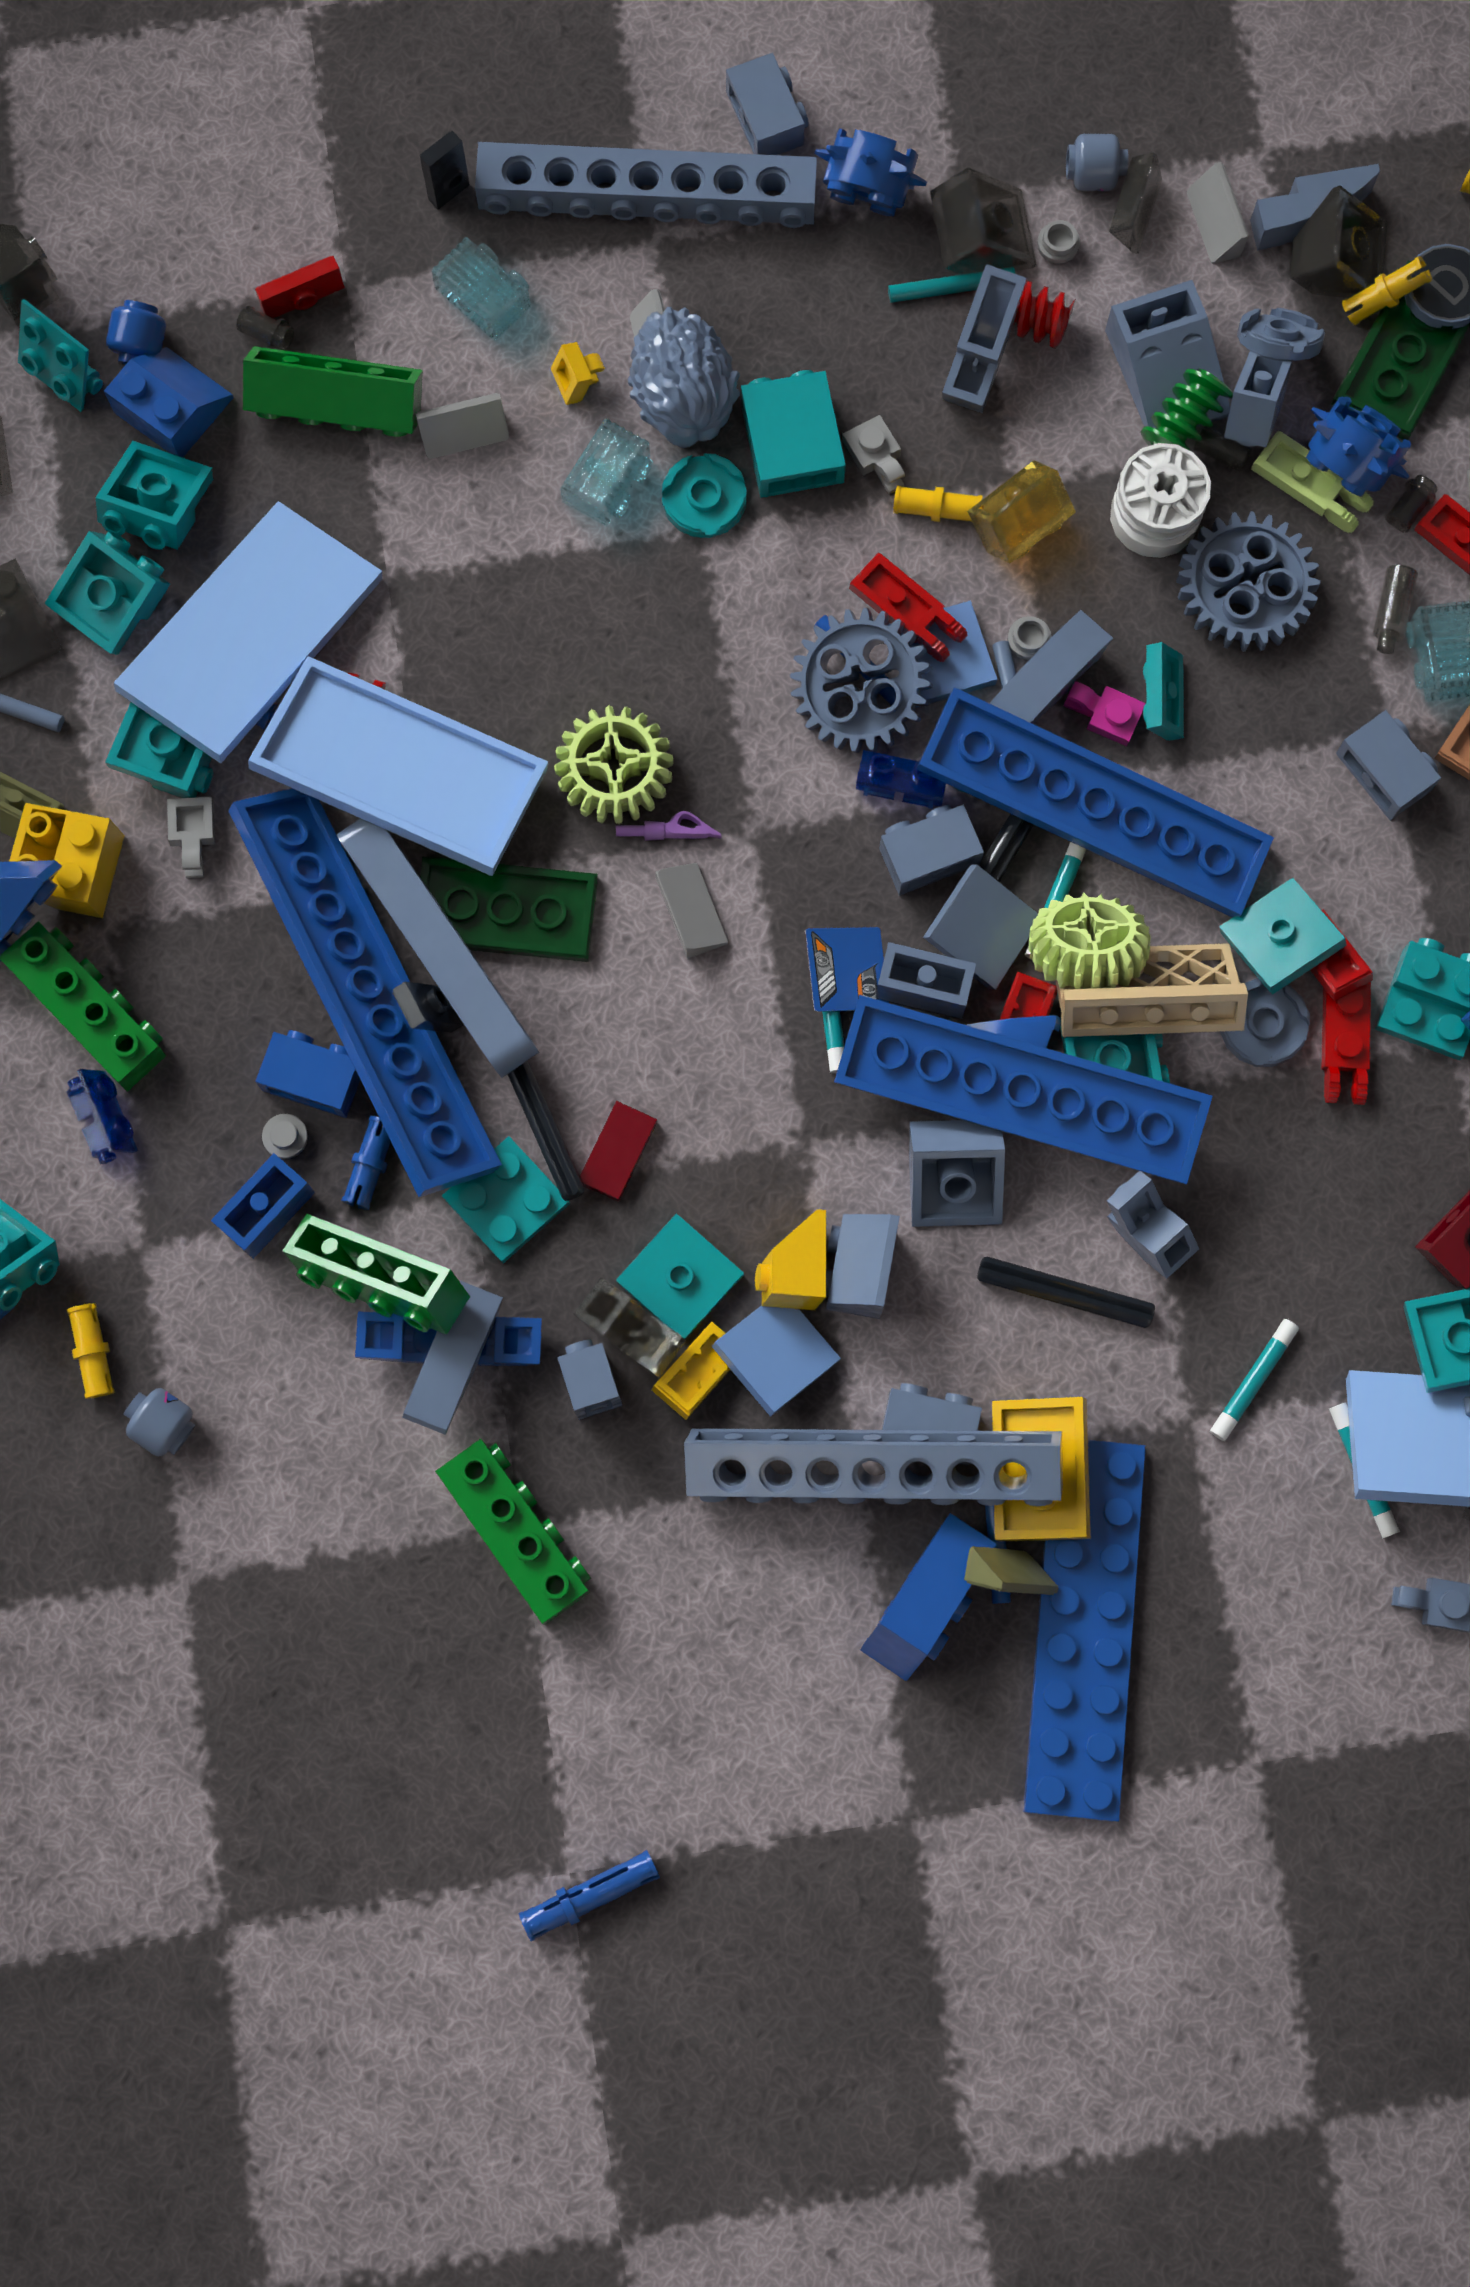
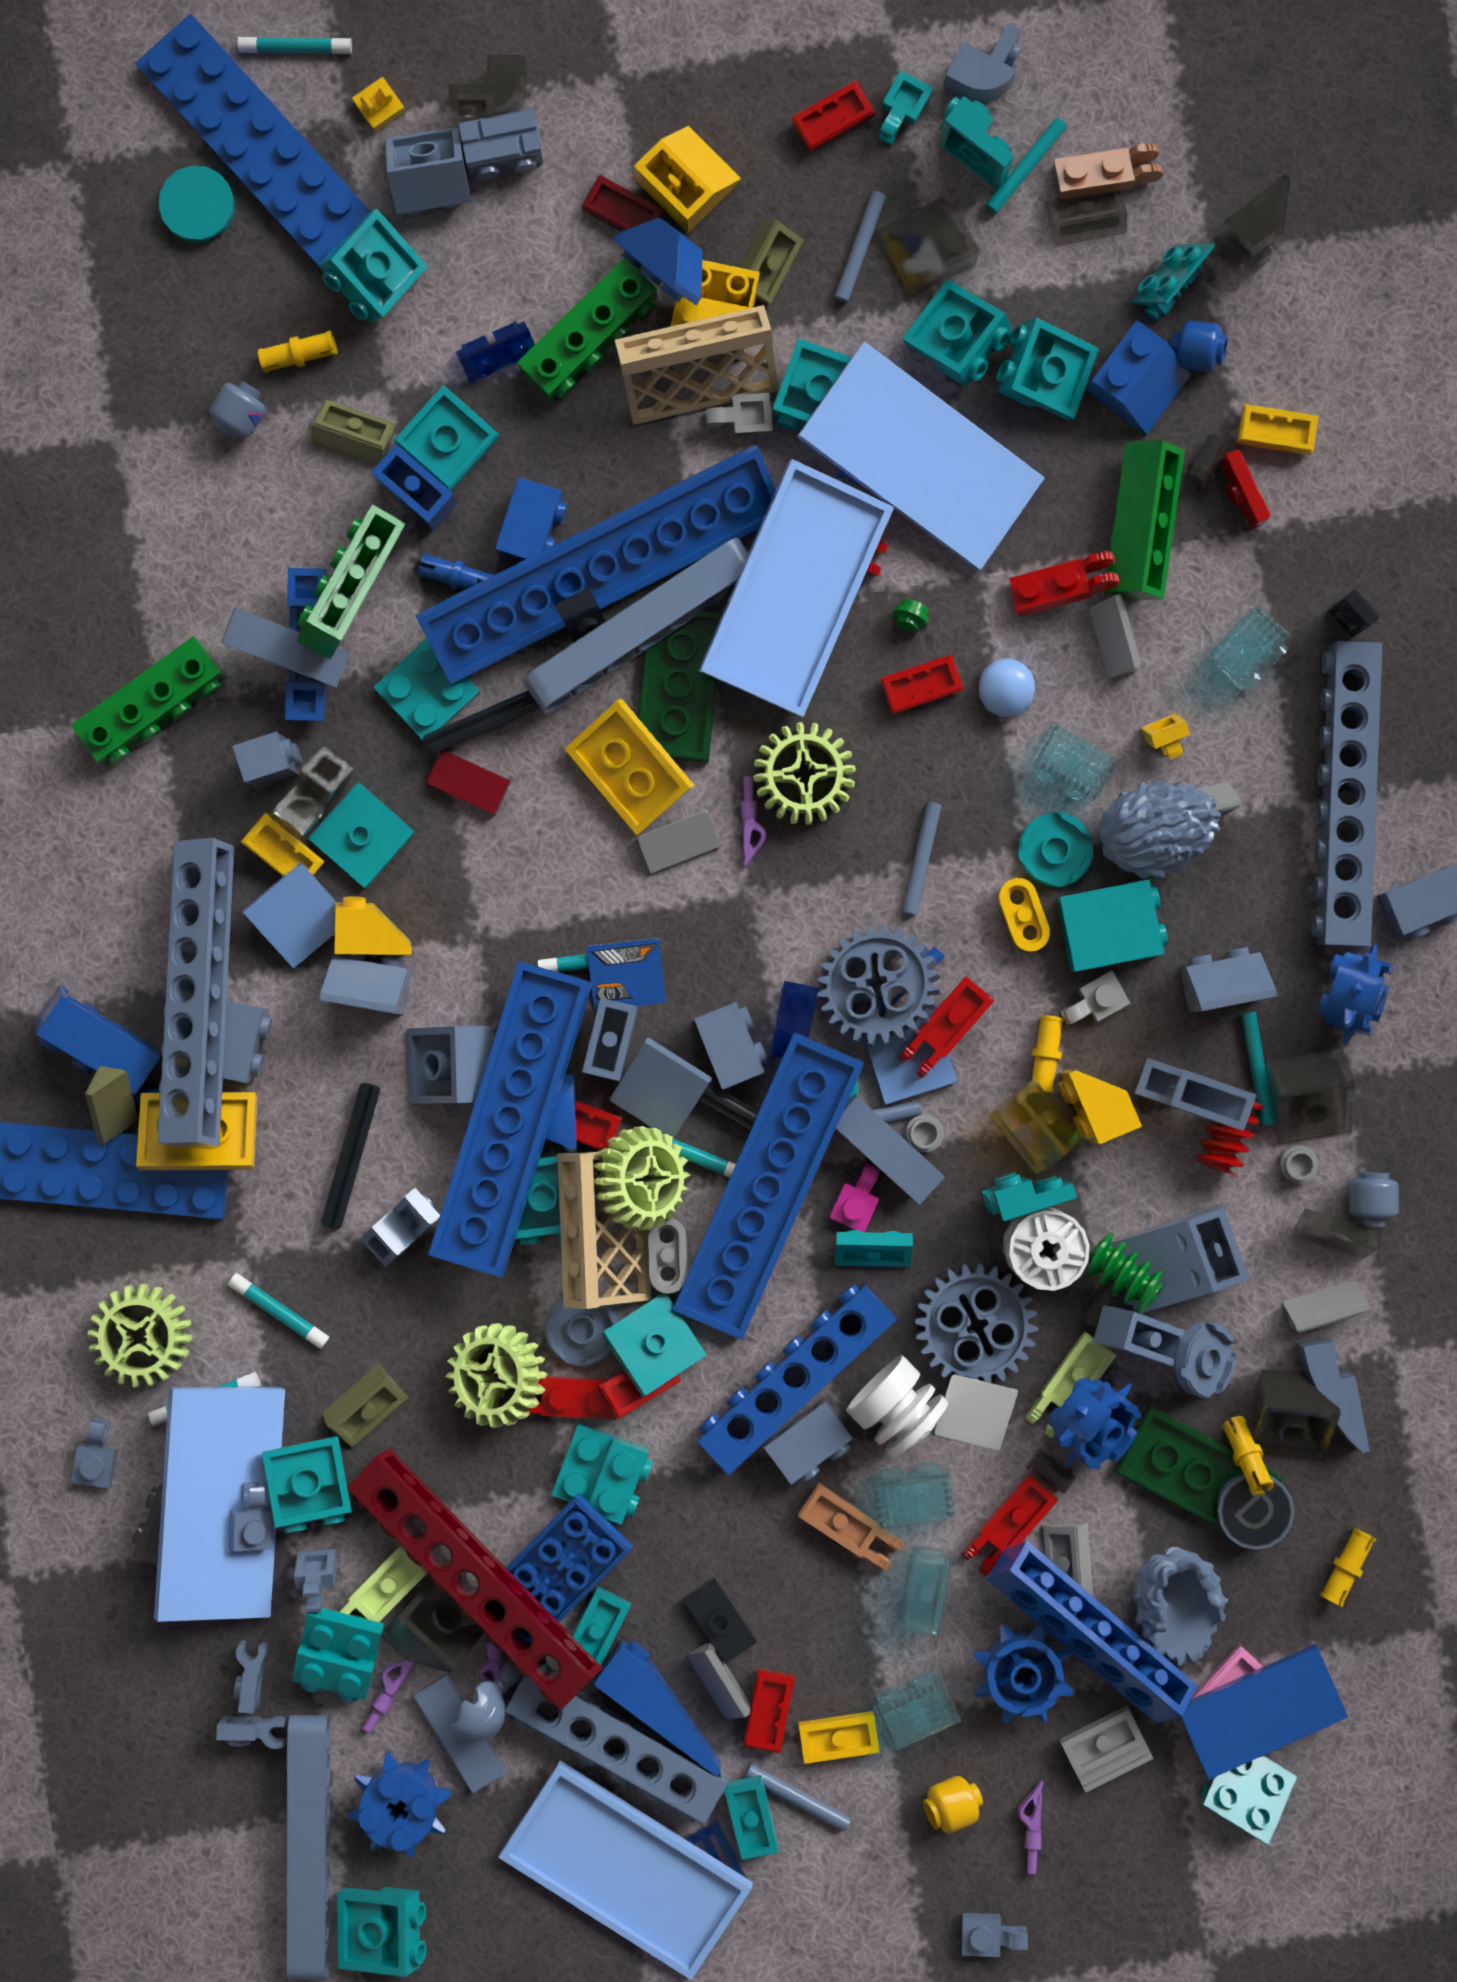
camera: 85 degrees right, 10 degrees up
(110, 876) = (693, 344): none -> tan fence
(192, 1287) = (352, 432): none -> olive slope
(201, 1171) = (447, 438): none -> teal plate
(233, 255) = (1277, 429): none -> yellow plate
(285, 1136) = (479, 504): light grey plate -> none
(401, 480) = (1062, 584): none -> red hinge
(432, 646) = (911, 615): none -> green plate
(512, 636) = (921, 684): none -> red plate
(517, 545) = (1006, 687): none -> light blue hair
(603, 959) = (629, 766): none -> yellow plate
(712, 640) = (921, 858): none -> sand blue bar
(776, 525) = (1025, 914): none -> yellow plate
(856, 307) = (1226, 981): none -> sand blue slope
(1001, 440) = (1101, 1107): none -> yellow slope
(1105, 522) = (1016, 1196): none -> teal plate
(1175, 919) = (667, 1254): none -> light grey plate
(1308, 1557) = (126, 1325): none -> yellowish green gear
(1311, 753) = (733, 1450): none -> blue brick
(1332, 1095) = (484, 1401): none -> yellowish green gear
(1346, 659) = (893, 1402): none -> white wheel
(1347, 582) = (976, 1412): none -> white sticker
(1364, 1278) = (364, 1406): none -> olive slope
(1394, 606) = (955, 1452): clear smoke cylinder -> none

